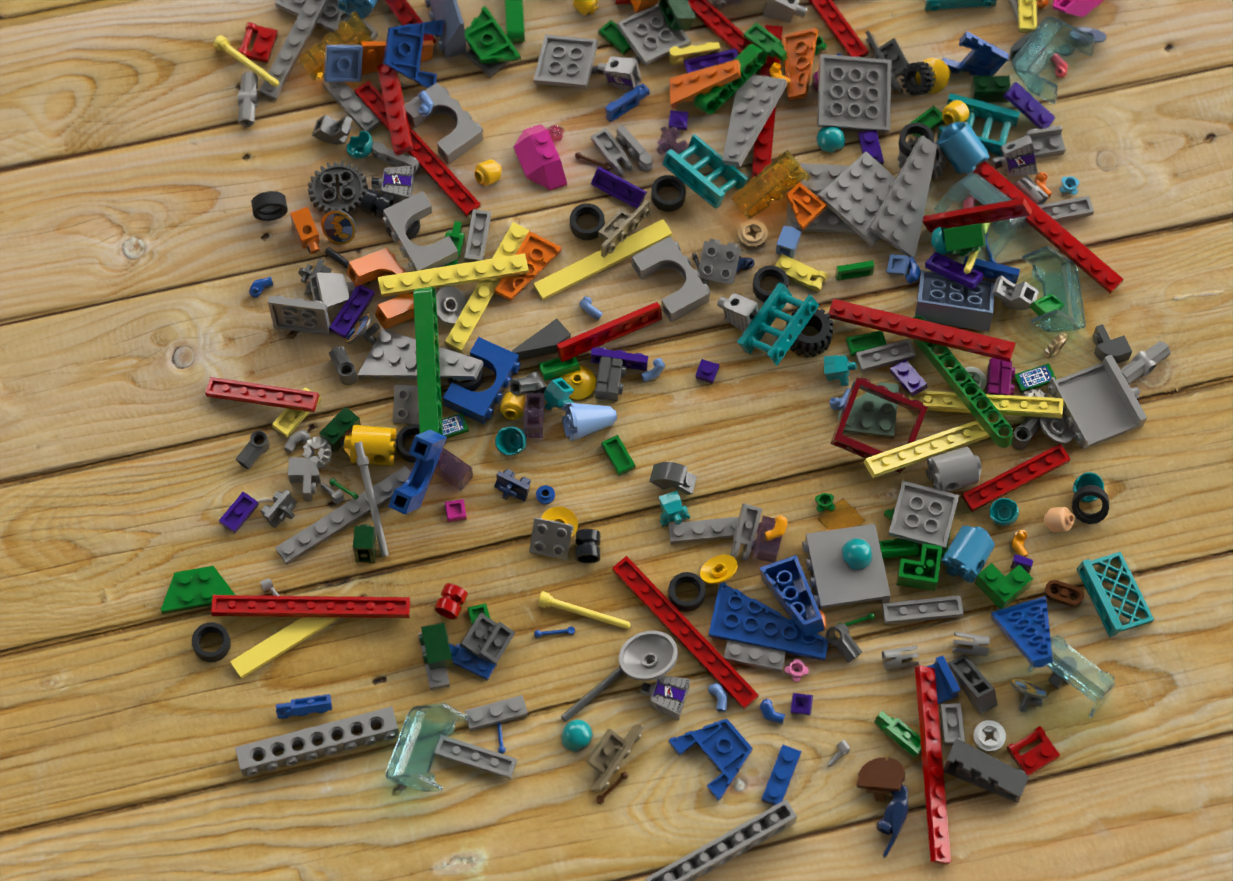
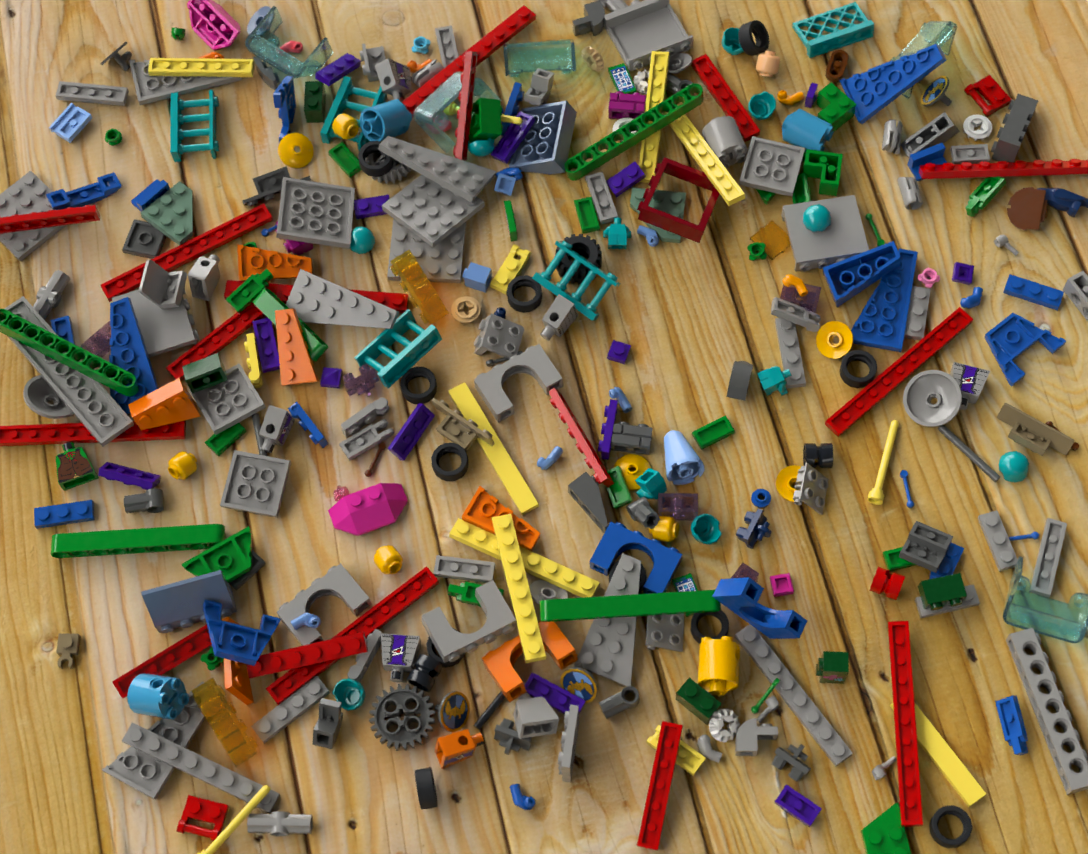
camera: 85 degrees left, 0 degrees up
(252, 451) = (726, 795): dark grey piece -> none
(343, 63) = (248, 711): medium blue plate -> none
(362, 462) = (748, 667): light grey bar -> none
(722, 696) = (961, 340): medium blue arm -> none
(776, 73) = (288, 282): light orange arm -> none
(805, 205) = (441, 258): orange wing -> none
(845, 643) = (901, 235): dark grey piece -> none
(910, 80) = (308, 165): black tyre -> none
(922, 330) = (582, 161): red plate -> none
(922, 609) = (861, 174): light grey plate -> none
(1046, 304) = (553, 63): green tile -> none

